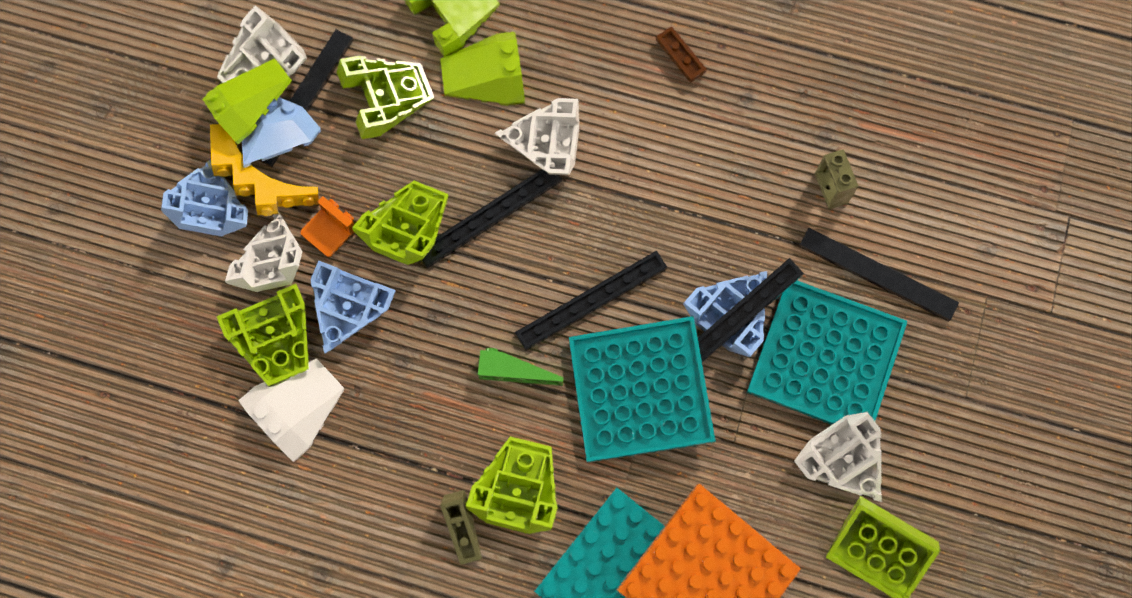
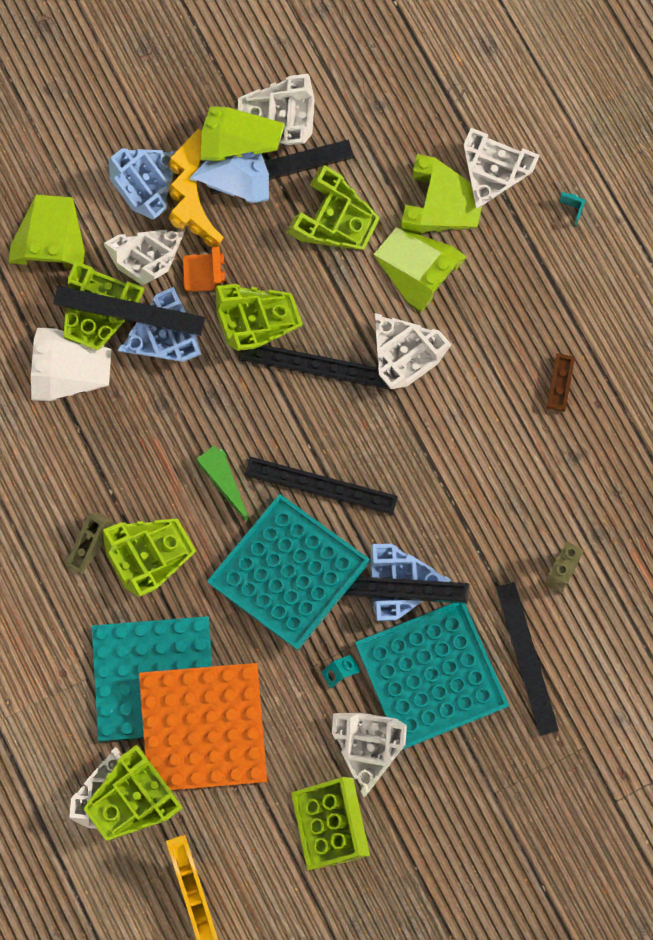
camera: 45 degrees right, 0 degrees up
(170, 318) = (49, 233): none -> lime wedge
(301, 313) = (129, 310): none -> black tile
(760, 420) = (342, 669): none -> teal bracket

